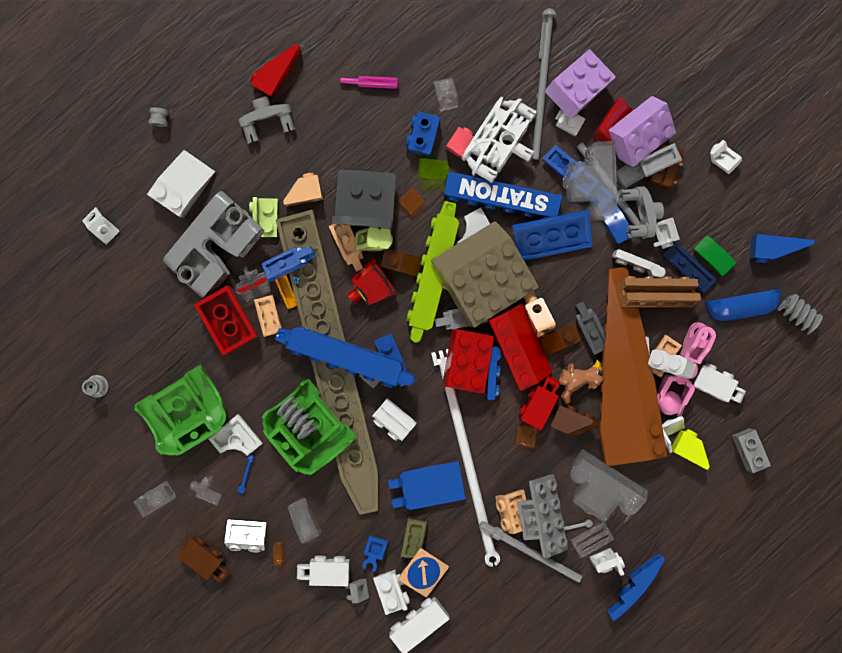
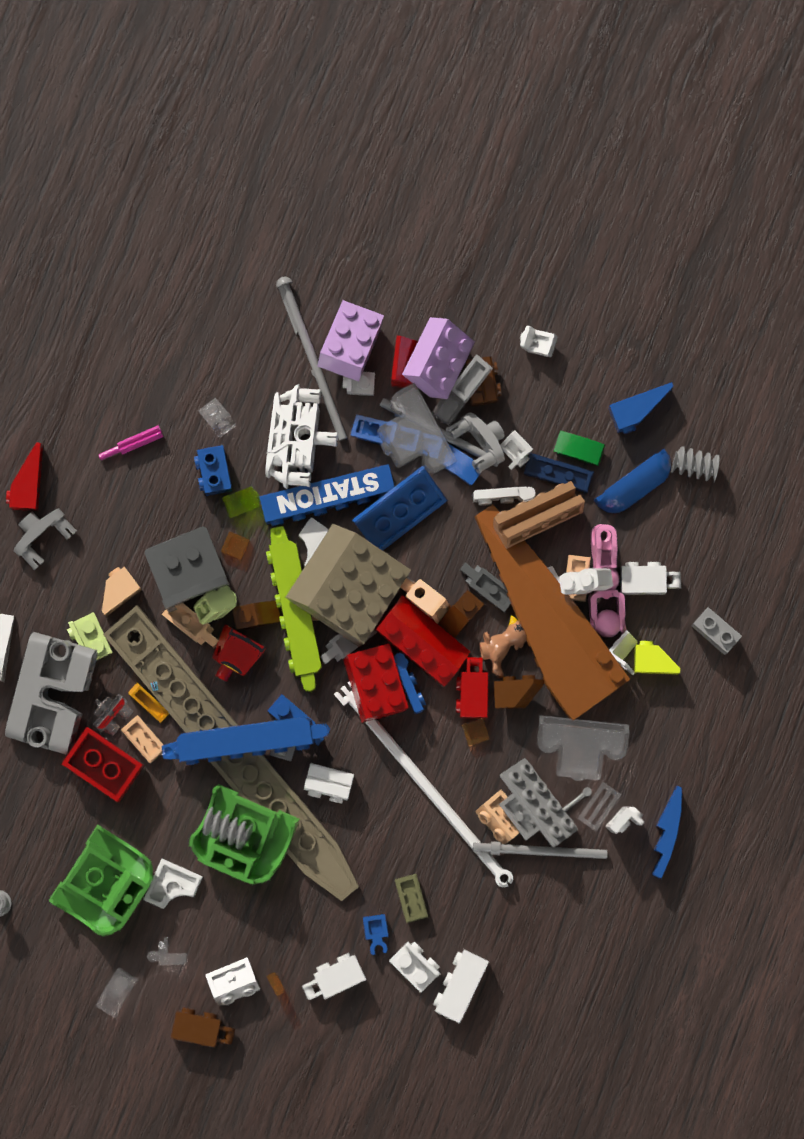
camera: 25 degrees left, 5 degrees down
(242, 489) = (204, 936): blue hinge -> none
(287, 262) = (137, 672): blue hinge -> none
(303, 520) = (285, 935): clear slope -> none
(358, 591) = (379, 980): light grey tile -> none
(423, 572) = (438, 927): piece -> none
(429, 486) = (400, 834): blue tile -> none
(460, 141) = (255, 460): coral brick -> none

